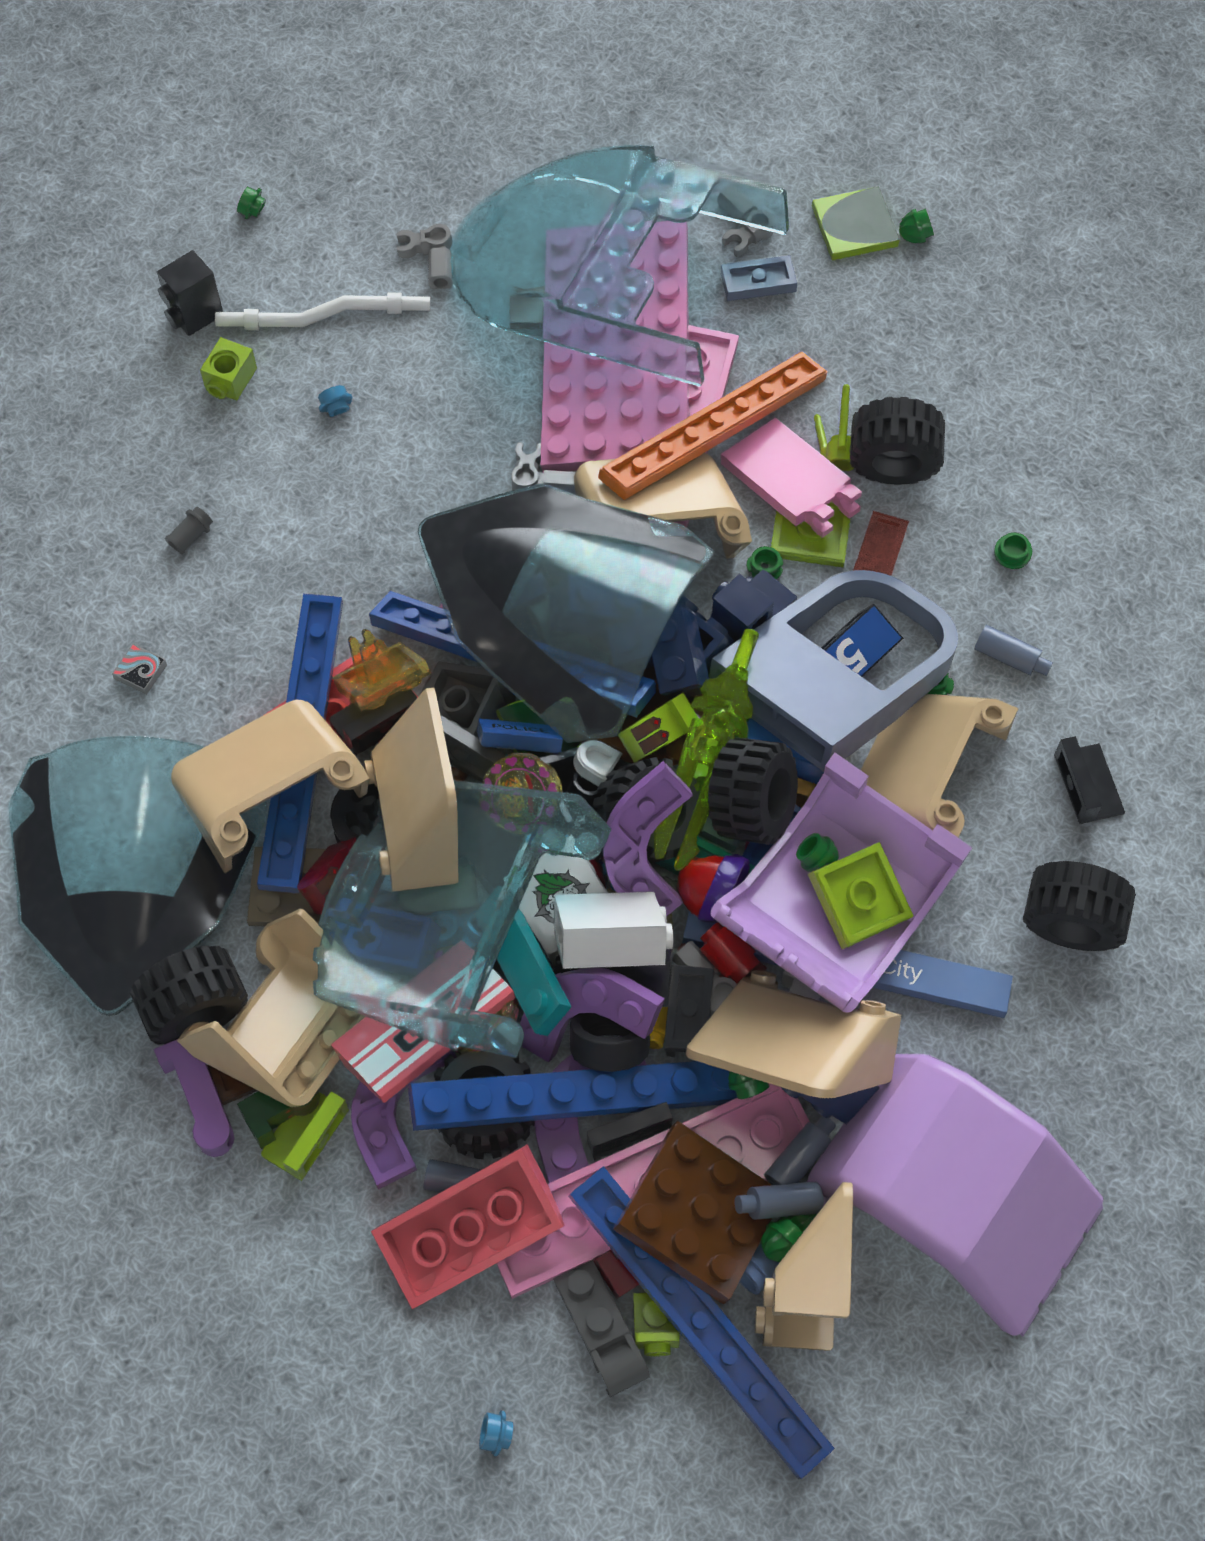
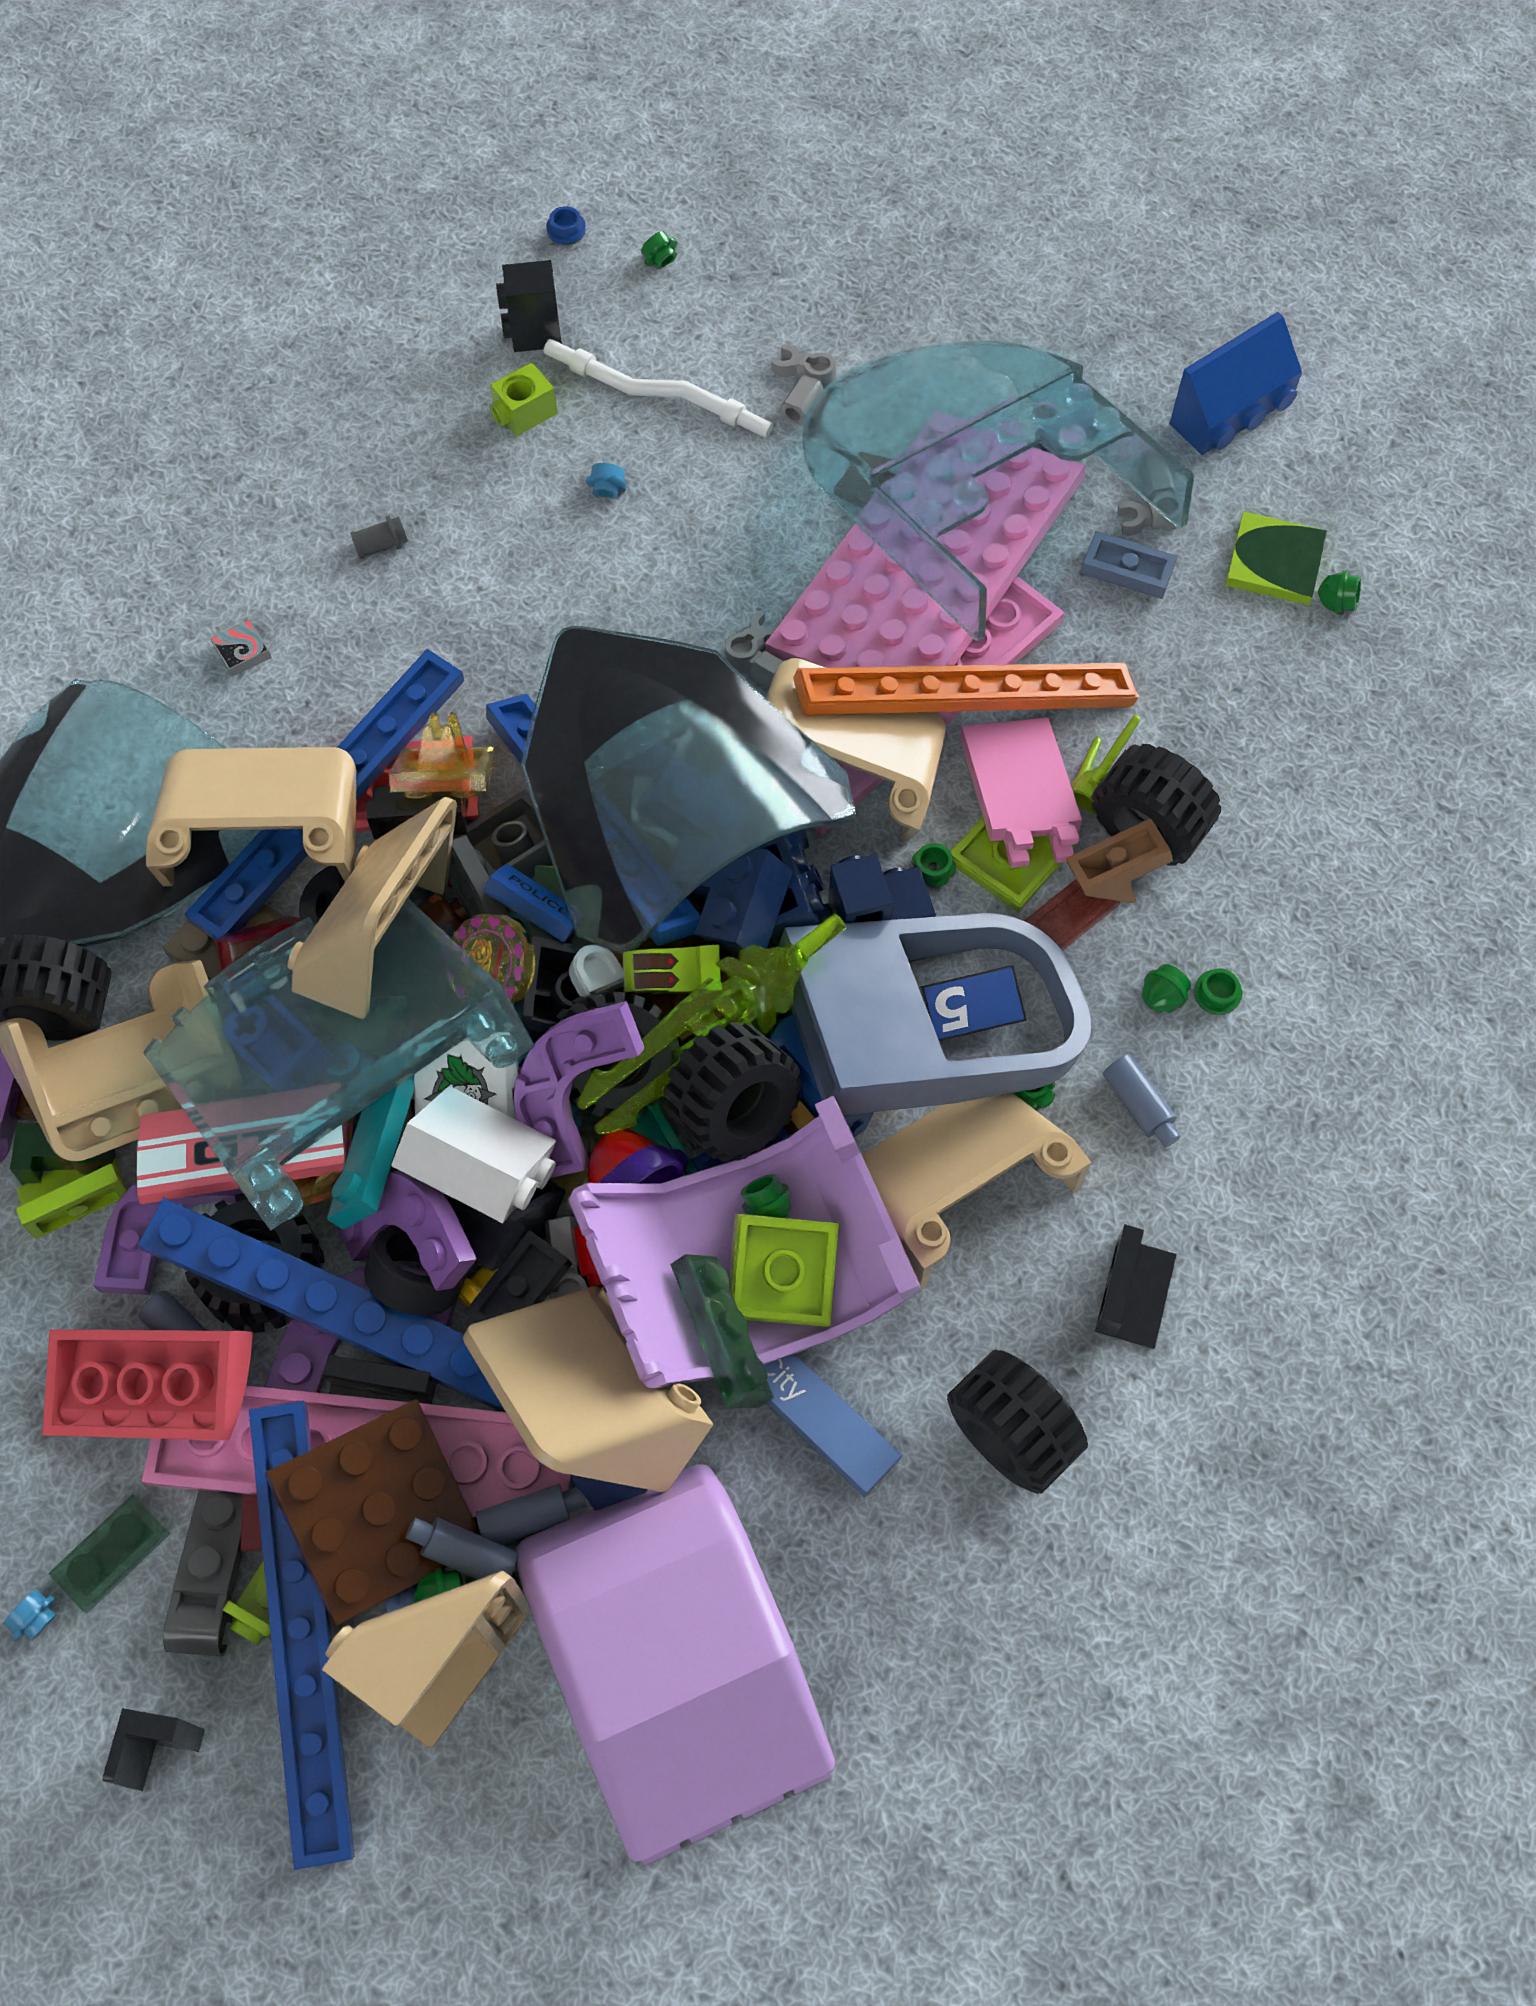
camera: 30 degrees right, 0 degrees up
(162, 217) = (565, 225): none -> blue plate
(519, 1359) = (109, 1553): none -> clear green plate
(649, 1446) = (136, 1741): none -> black panel
(754, 110) = (1237, 386): none -> blue slope
(855, 954) = (722, 1331): none -> clear green plate
(894, 495) = (1111, 864): none -> medium nougat slope
(978, 567) = (1165, 989): none -> green plate

